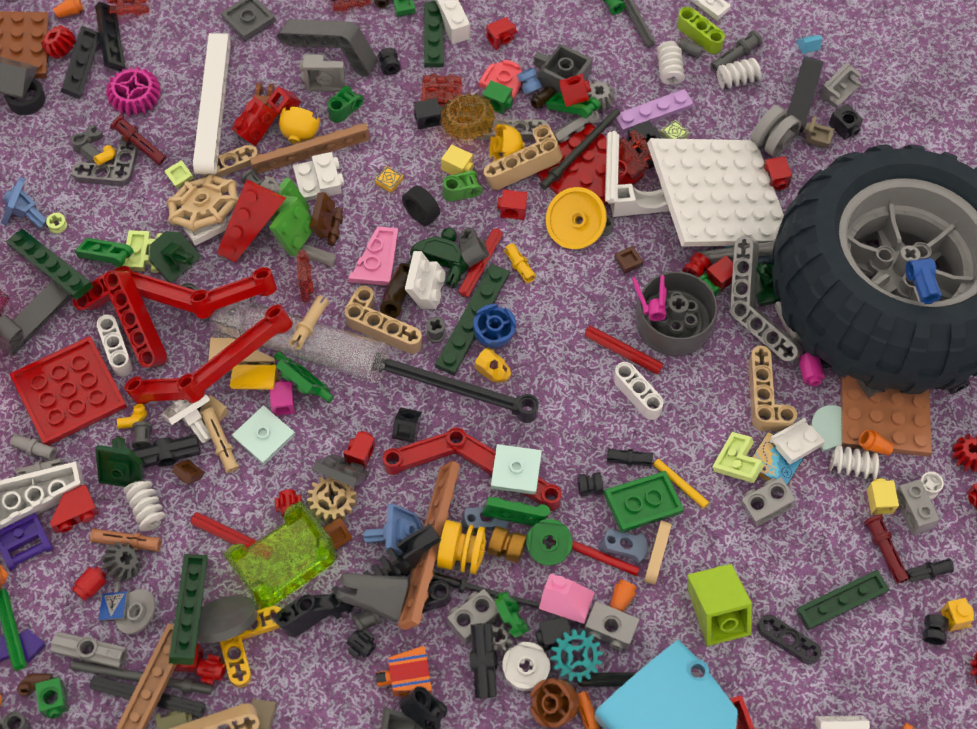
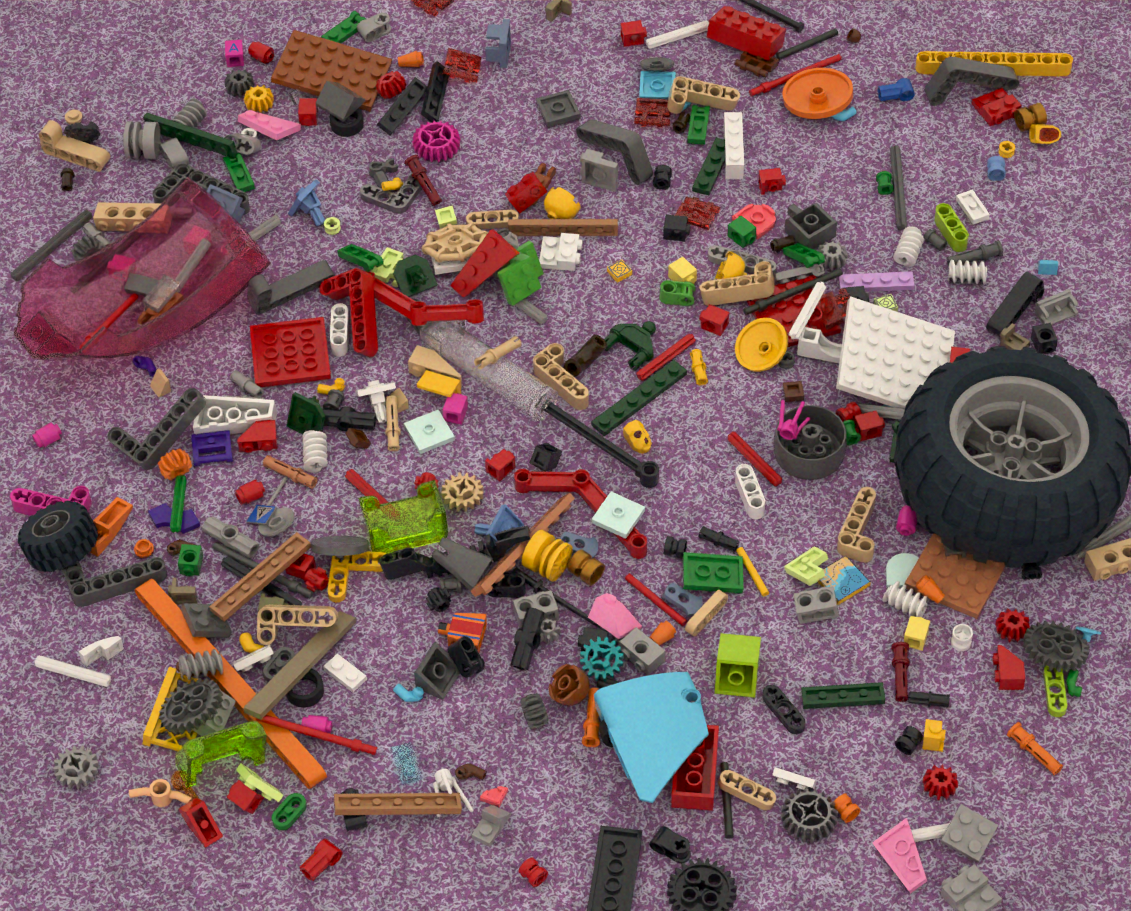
camera: 25 degrees right, 10 degrees down
(49, 264) = (312, 252): dark green plate -> none
(121, 562) = (279, 483): dark grey gear -> none
(188, 610) = (316, 527): dark green plate -> none
(193, 386) = (384, 372): red piece -> none
(212, 104) = (496, 168): white beam -> none
(289, 100) = (561, 181): red brick -> none
(304, 275) = (512, 320): clear red plate -> none
(305, 380) = (477, 396): green plate -> none
(322, 217) = (547, 281): reddish brown plate -> none
(338, 532) = (455, 518): dark orange plate -> none
(342, 471) = (475, 470): dark grey plate -> none
(343, 104) = (607, 200): green piece -> none
(377, 262) = (581, 328): bright pink wing -> none
(421, 205) = (634, 296): black tyre -> none
(425, 281) = (609, 354): white plate -> none
(436, 329) = (603, 394): dark grey bush -> none
(467, 116) = (707, 238): clear yellow gear -> none
(472, 248) = (662, 341): dark grey piece -> none
(494, 326) = (650, 405): blue cylinder -> none
(508, 610) = (564, 613): green plate -> none
(514, 511) = (604, 546): green plate -> none
(518, 655) = (553, 649): white plate -> none
(529, 80) = (775, 225): medium blue wheel -> none
(540, 532) = (628, 584): green plate -> none
(575, 90) = (807, 241): red brick -> none
(749, 299) = (873, 451): light grey beam -> none
(776, 130) = (972, 326): light grey wheel -> none
(797, 441) = (865, 569): white plate -> none
(916, 507) = (941, 648): light grey brick -> none
(923, 274) = (999, 450): blue piece -> none

